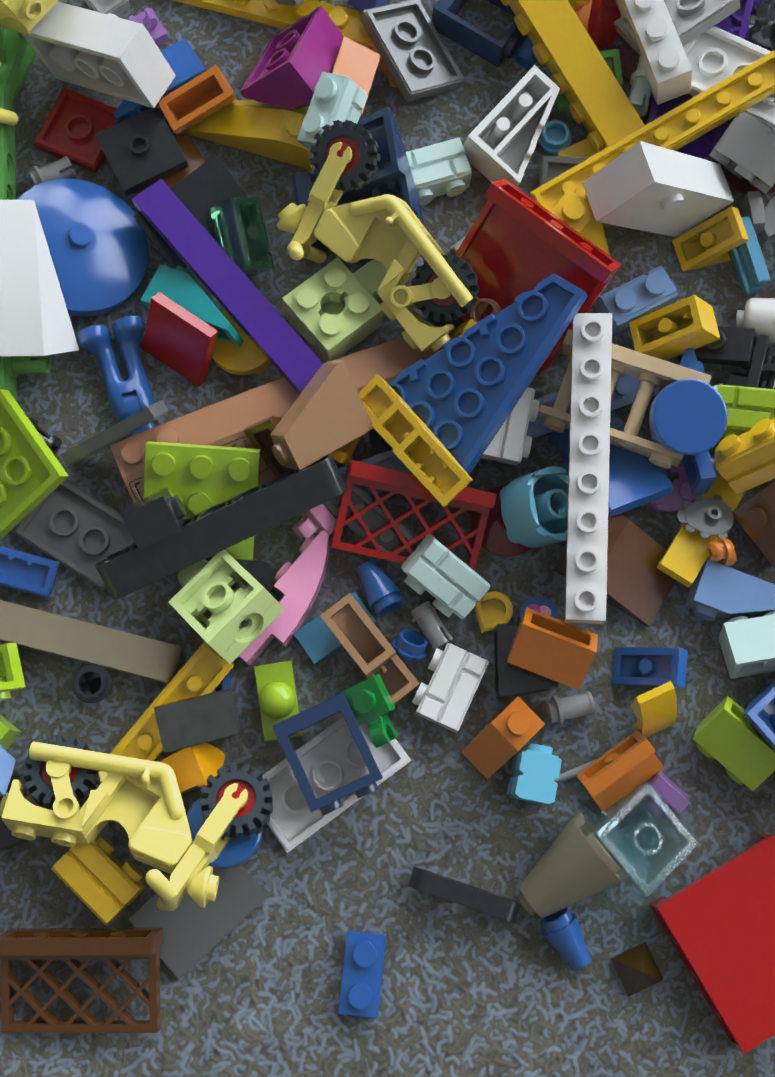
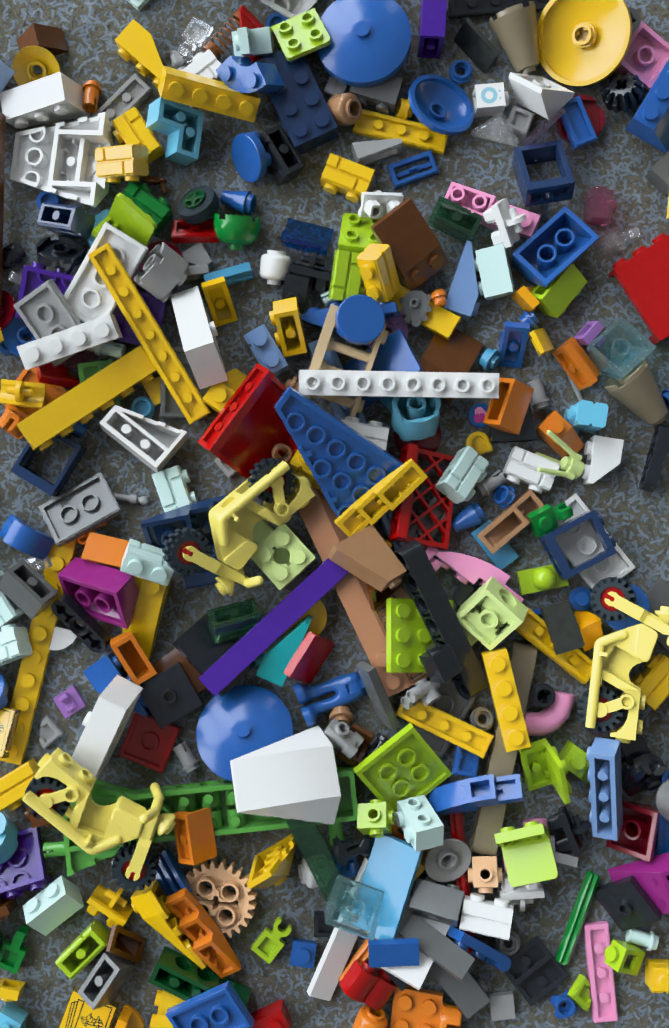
camera: 90 degrees left, 10 degrees up
(44, 402) = (357, 758): none -> reddish brown bracket
(57, 379) = (342, 737): none -> light grey plate
(57, 701) = (551, 717): none -> bright pink cylinder
(60, 534) = (447, 727): none -> yellow tile
(69, 583) = (486, 713): none -> flat silver plate
(89, 386) = (341, 714): none -> medium nougat plate
(89, 620) = (505, 699): none -> yellow brick
(113, 498) = (423, 691): none -> light grey plate
(234, 25) = (62, 638): none -> white tile
(243, 753) = (580, 598): none -> blue plate
(254, 41) = (97, 631): none -> black beam
(425, 121) = (132, 498): none -> light grey piece
(454, 751) = (570, 466): none -> yellowish green plant
(466, 805) = (602, 457): none -> white slope
(625, 632) = (490, 359): none -> dark azure plate
(689, 698) = (531, 319): none -> blue plate
(720, 691) = (525, 298): none -> light orange tile

